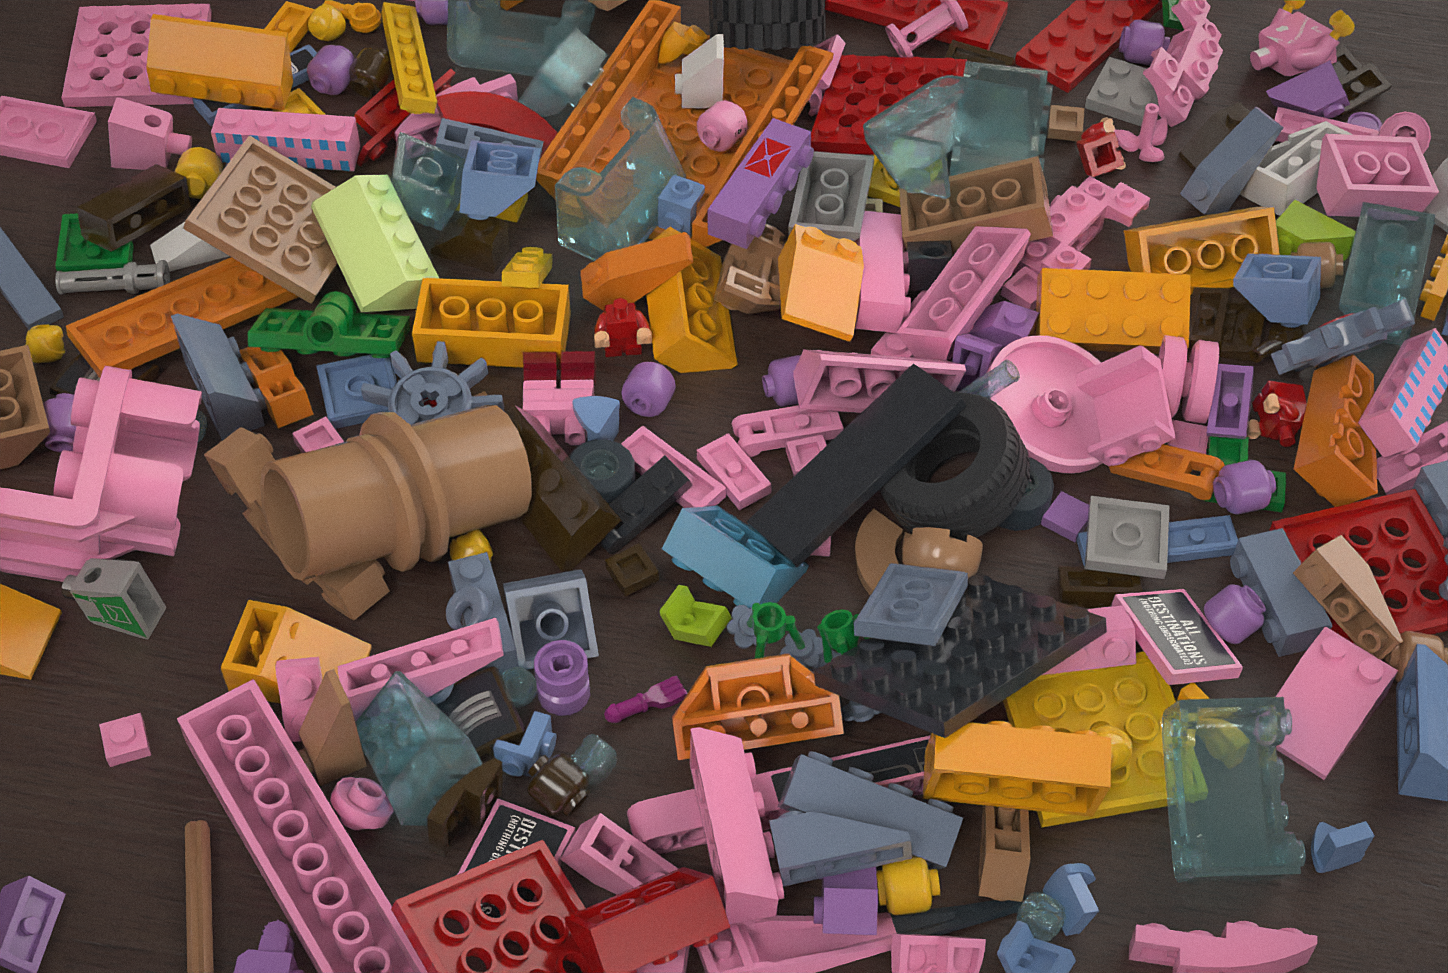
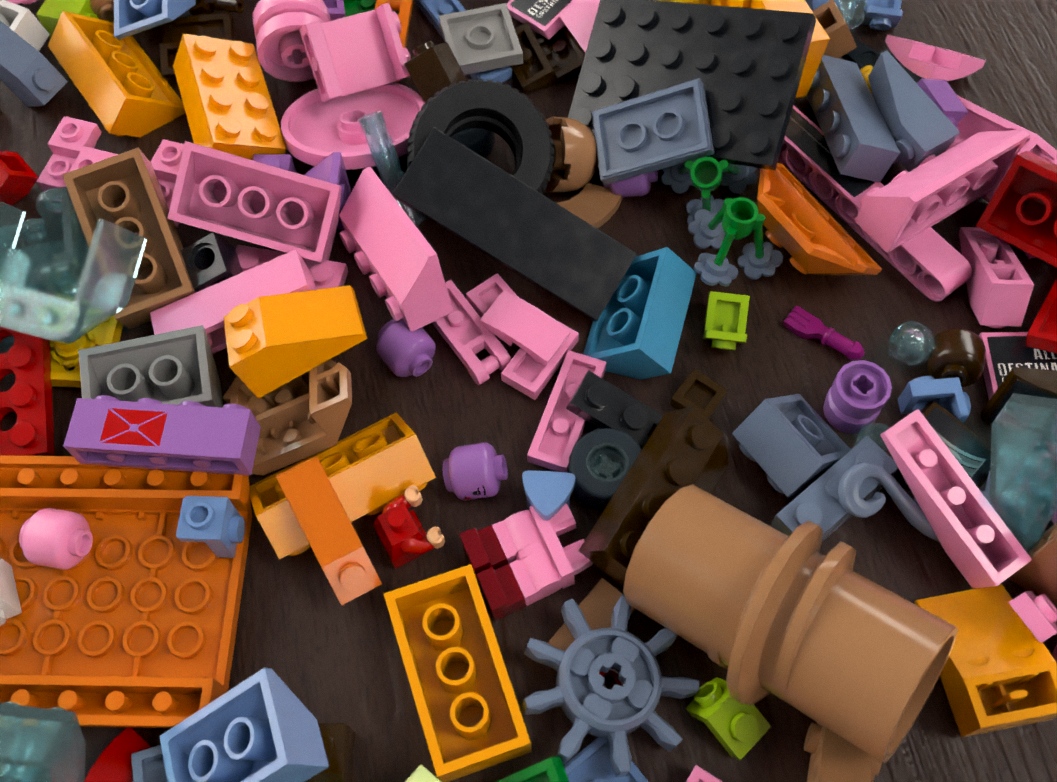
camera: 110 degrees left, 10 degrees up
(527, 268) = (368, 661): yellow plate -> none
(621, 201) = (150, 583): clear light blue windscreen -> none
(752, 453) = (526, 326): none -> bright pink slope
(1085, 473) = (434, 68): none -> dark brown brick

